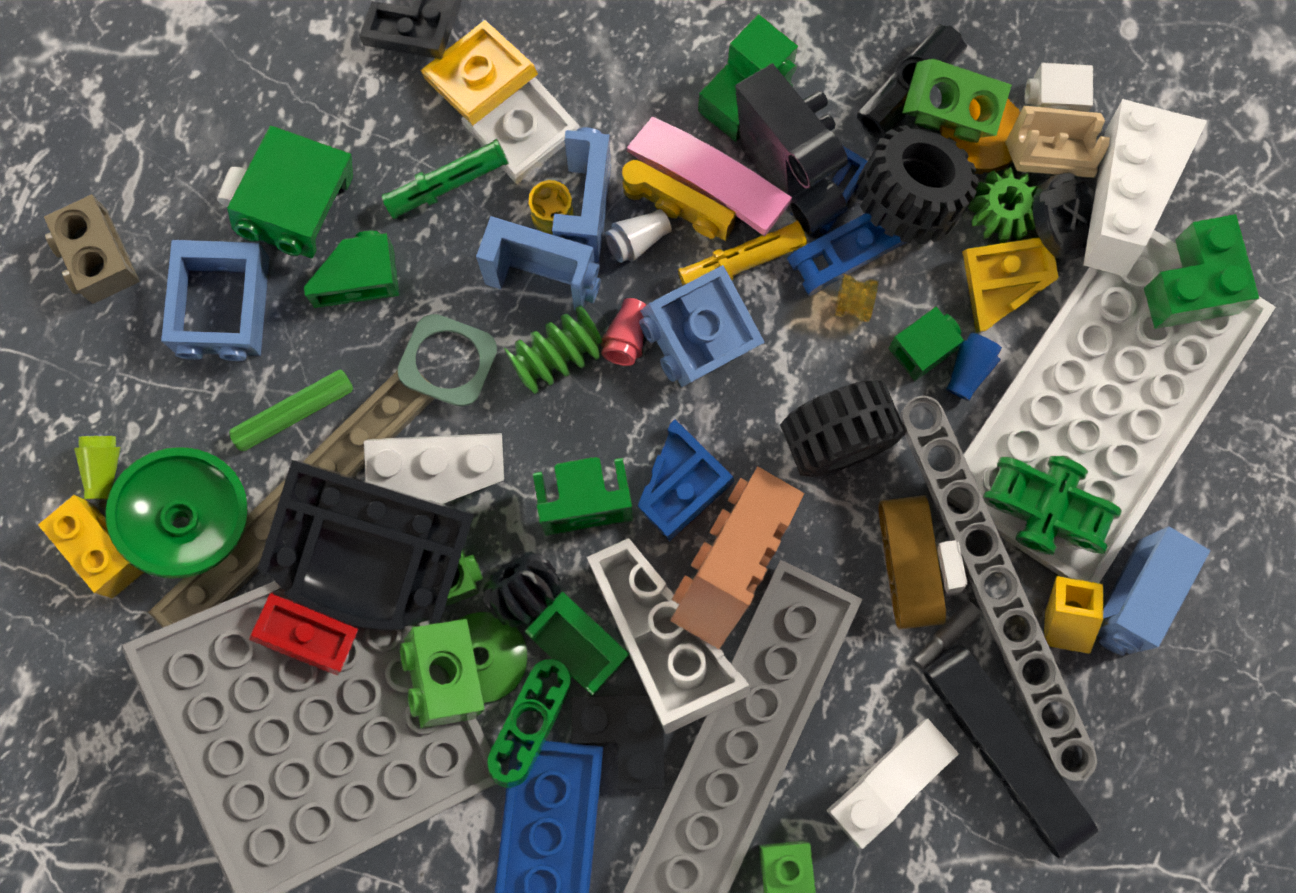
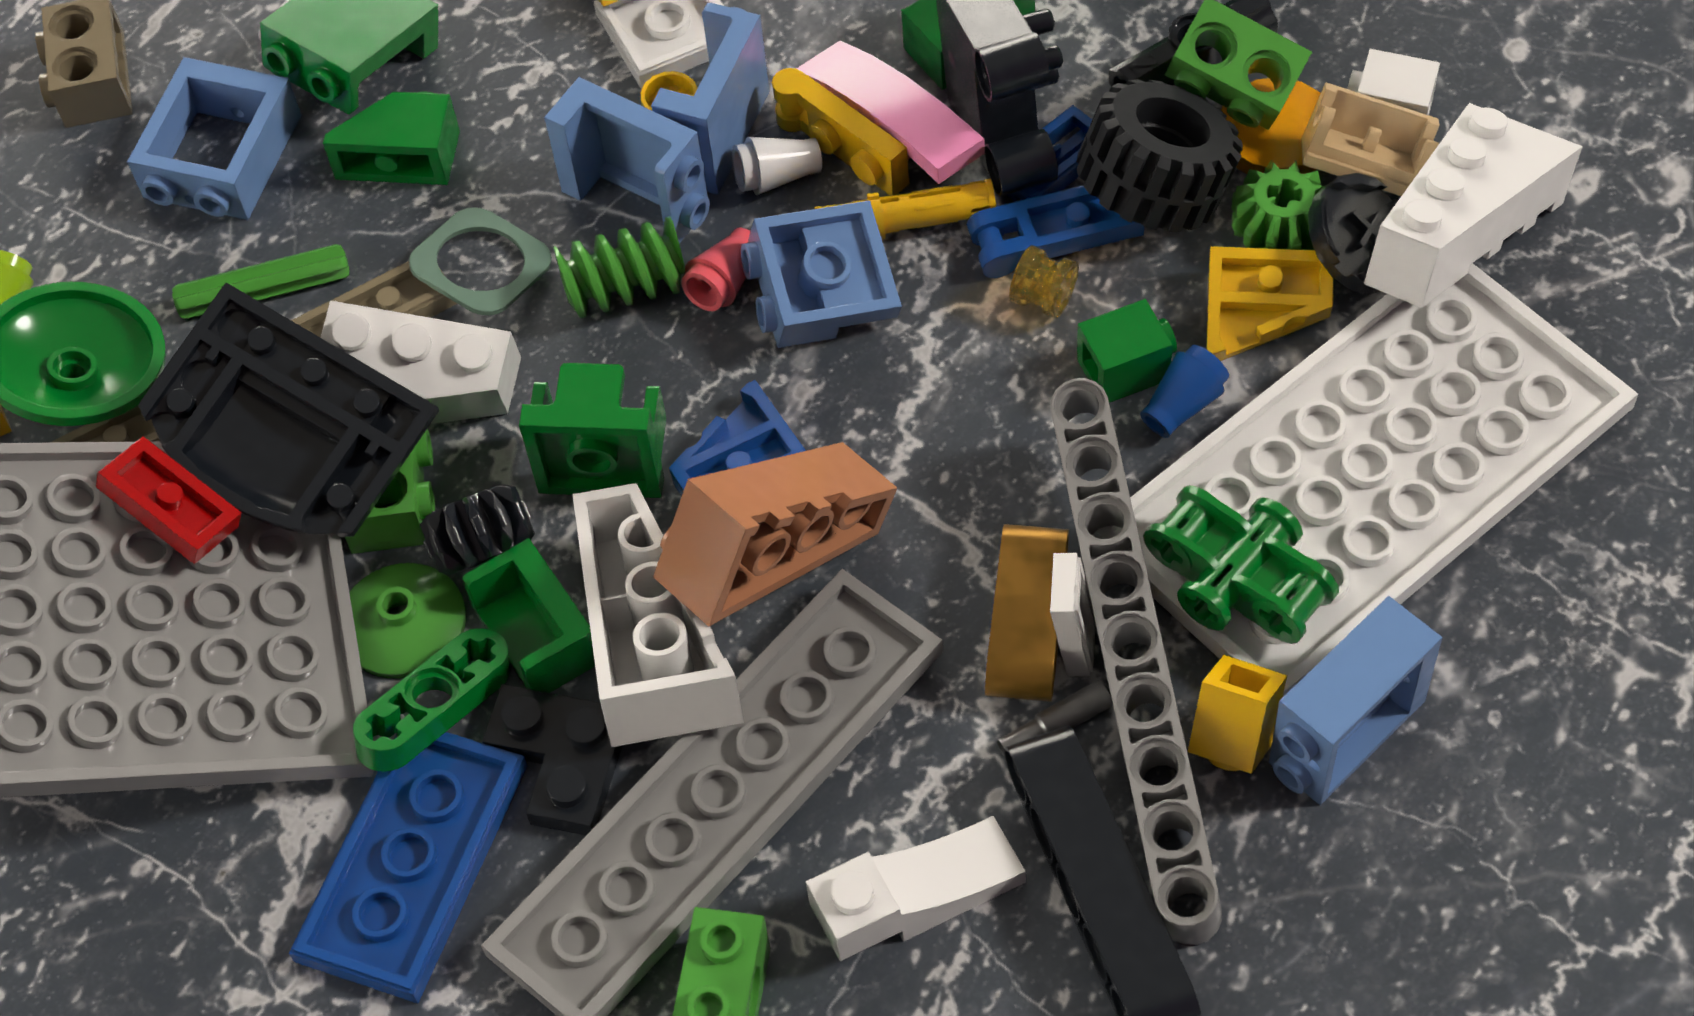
camera: 20 degrees right, 20 degrees down
(444, 179) = (485, 75): green pin -> none
(451, 648) = (326, 634): bright green brick -> none
(842, 428) = (969, 411): black tyre -> none
(1212, 280) = (1536, 335): green brick -> none

